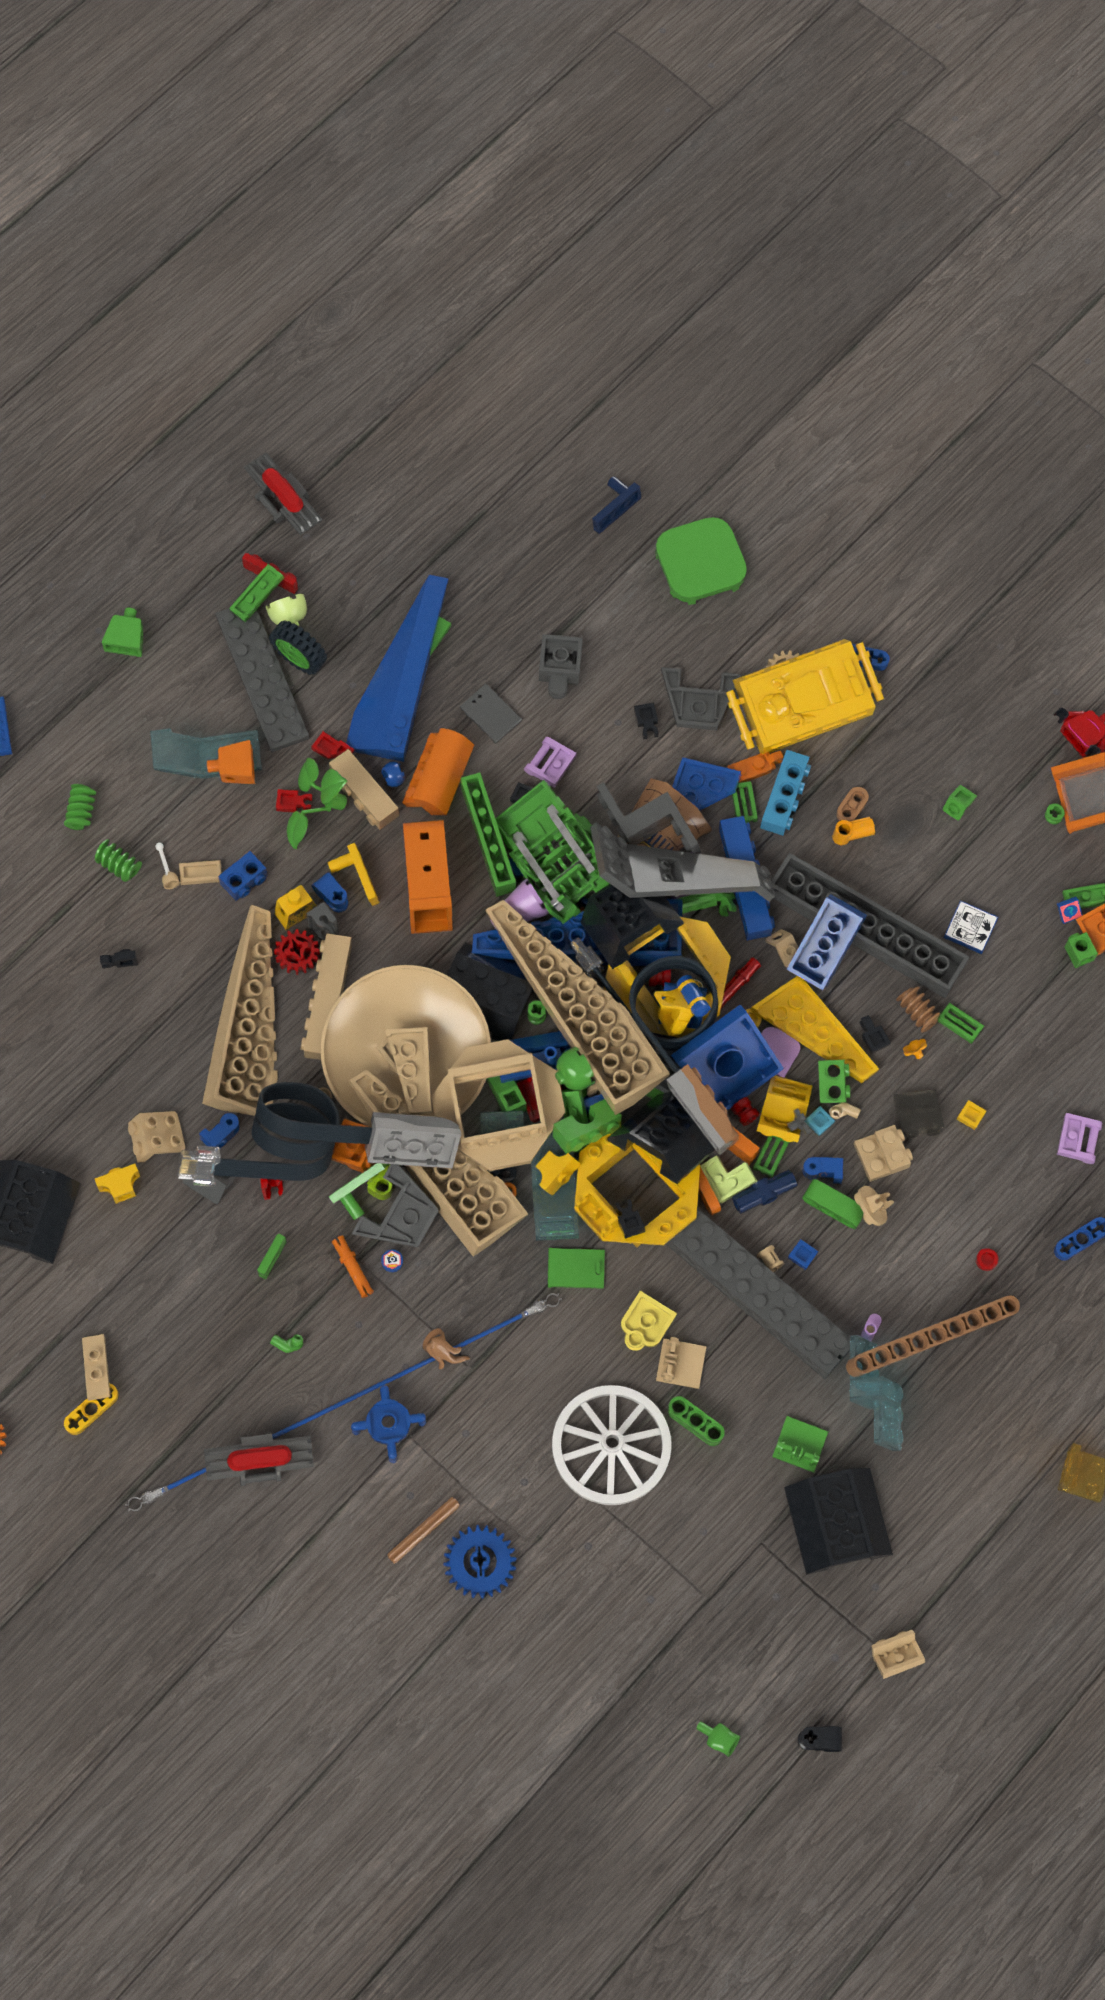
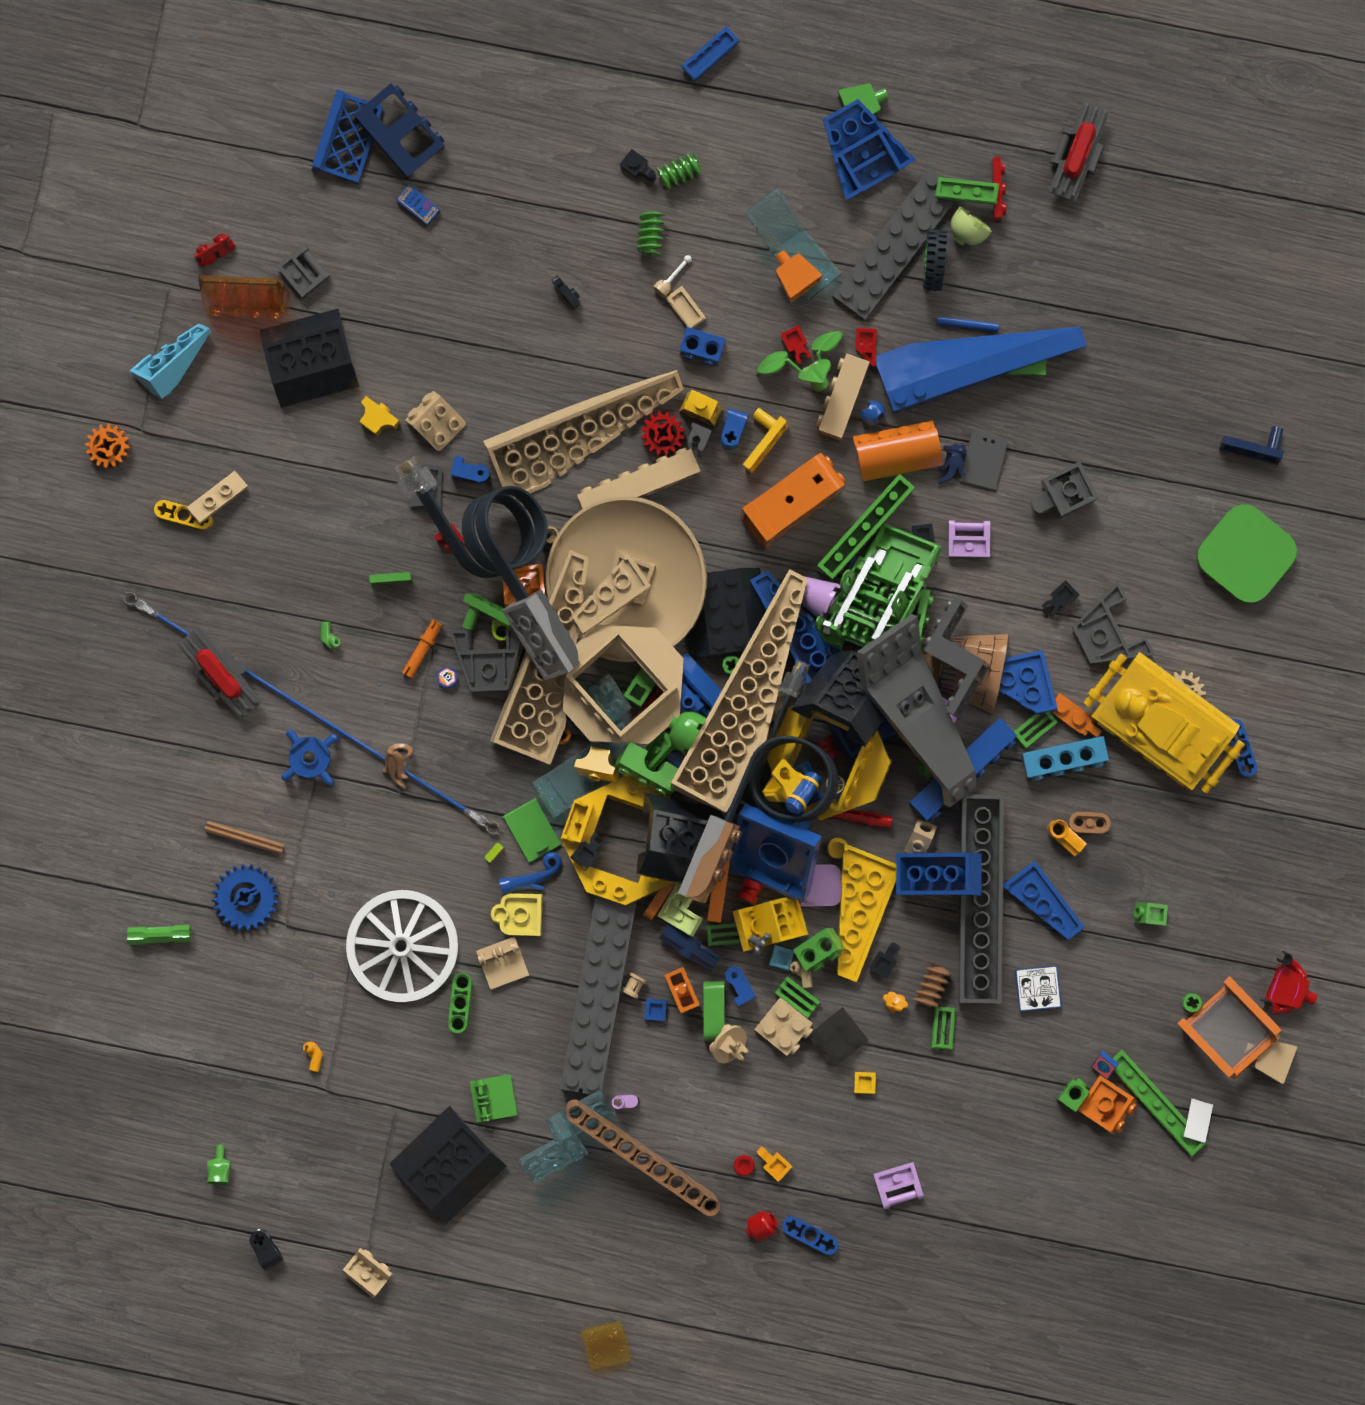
camera: 70 degrees right, 15 degrees up
(48, 841) = (636, 164): none -> black plate
(164, 649) = (863, 149): none -> blue wedge
(367, 660) = (967, 323): none -> blue bar
(473, 1650) = (169, 934): none -> bright green axle
(475, 733) = (954, 460): none -> dark blue piece
(577, 1310) = (494, 852): none -> lime tile
(621, 1296) = (530, 880): none -> blue plant
(665, 1583) = (315, 1054): none -> light orange arm
(799, 1218) = (682, 990): none -> orange brick
(879, 1121) = (811, 1007): none -> bright green tile
(896, 878) = (1041, 897): none -> blue wing
(1003, 1230) = (775, 1165): none -> light orange plate
(1051, 1274) = (761, 1226): none -> red head

